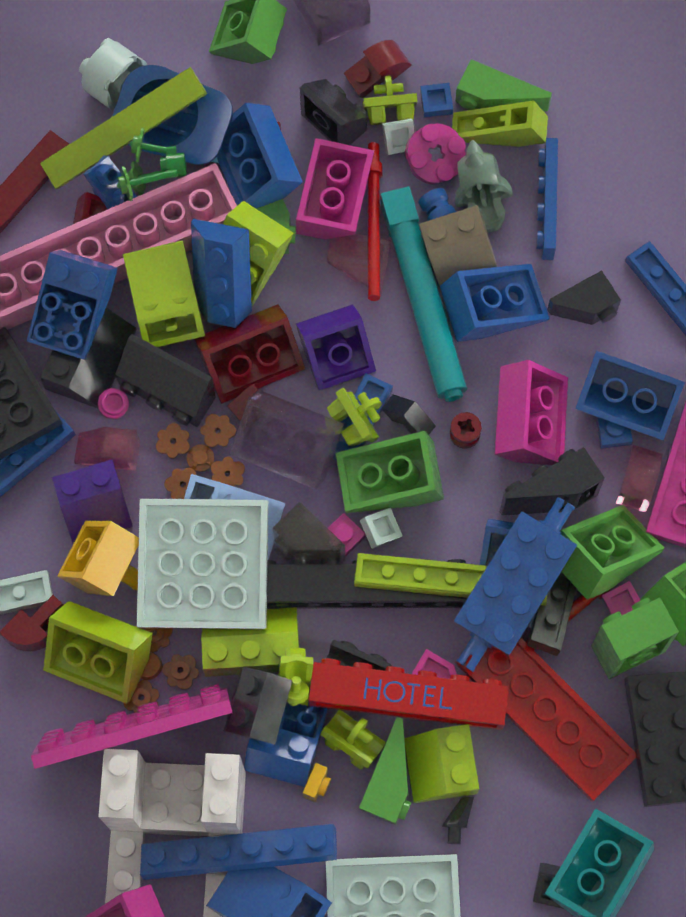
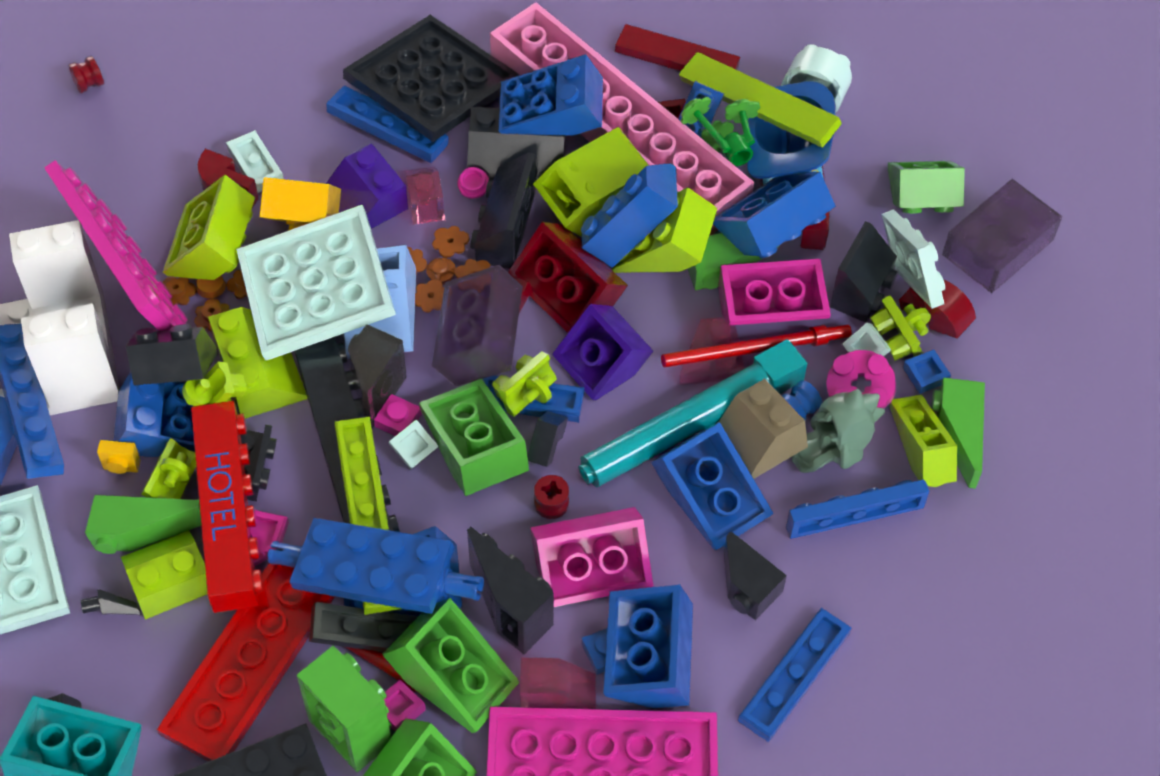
camera: 70 degrees right, 15 degrees down
(344, 64) = (914, 258): none -> light aqua plate

